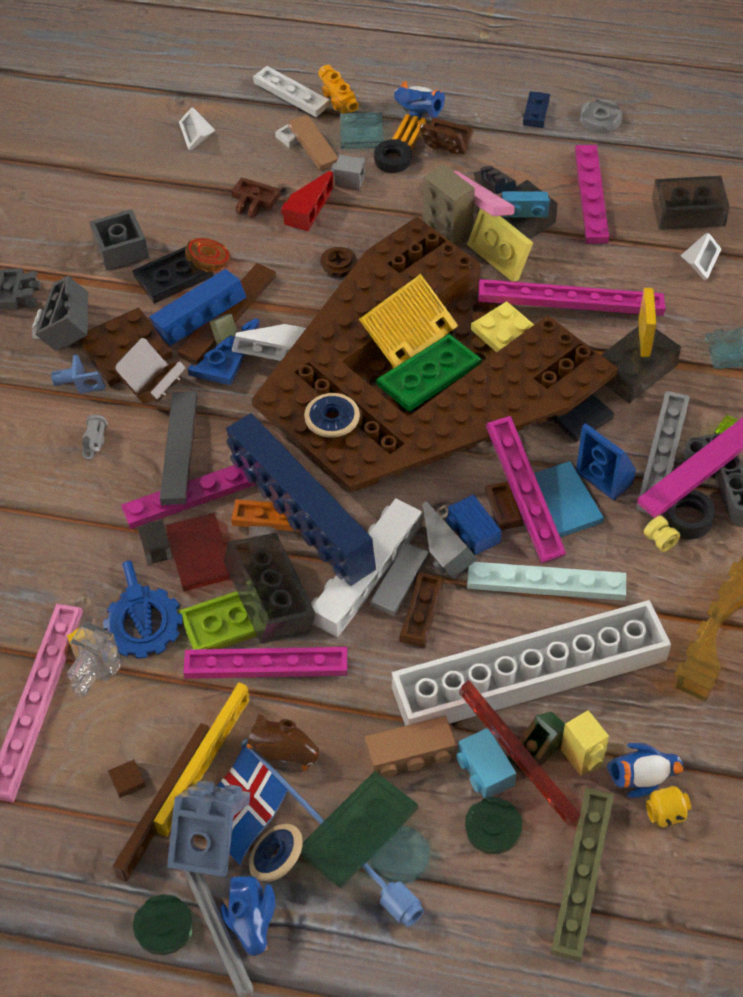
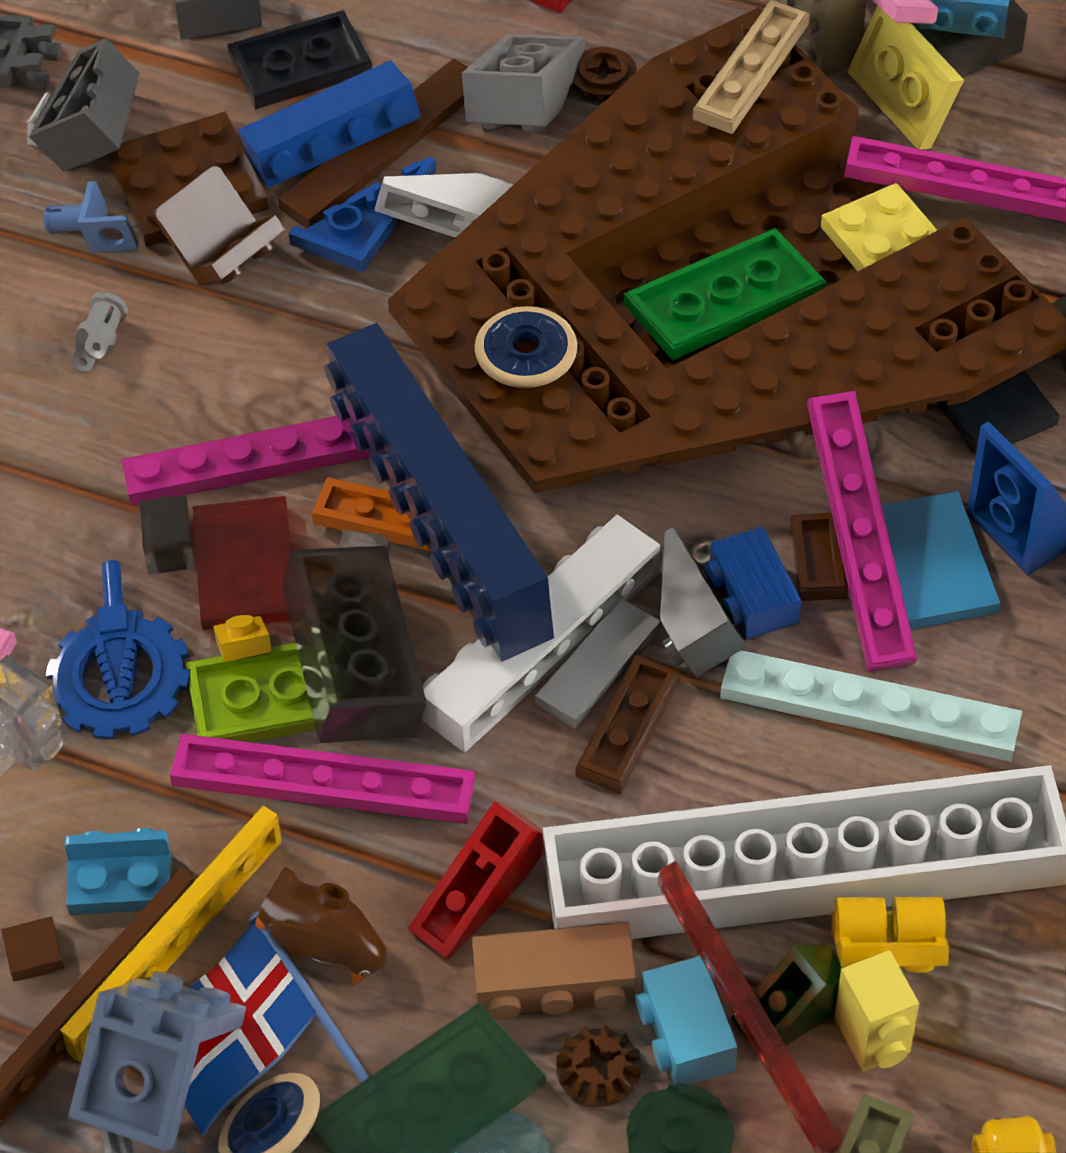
camera: 10 degrees right, 0 degrees up
(164, 729) = (116, 870): none -> dark azure bracket
(178, 448) = (244, 372): dark grey tile -> none
(207, 254) = (354, 18): clear orange tile -> none
(207, 593) = (242, 637): none -> yellow plate
(223, 327) = (367, 166): olive tile -> none
(296, 270) = (521, 80): none -> light grey slope
(360, 705) = (479, 879): none -> red slope
(408, 321) = (702, 194): yellow window -> none
(420, 247) = (751, 67): none -> tan tile
(439, 805) = (587, 1084): none -> reddish brown gear
(572, 701) = (910, 931): none -> yellow plate
(643, 769) = (979, 1076): animal -> none

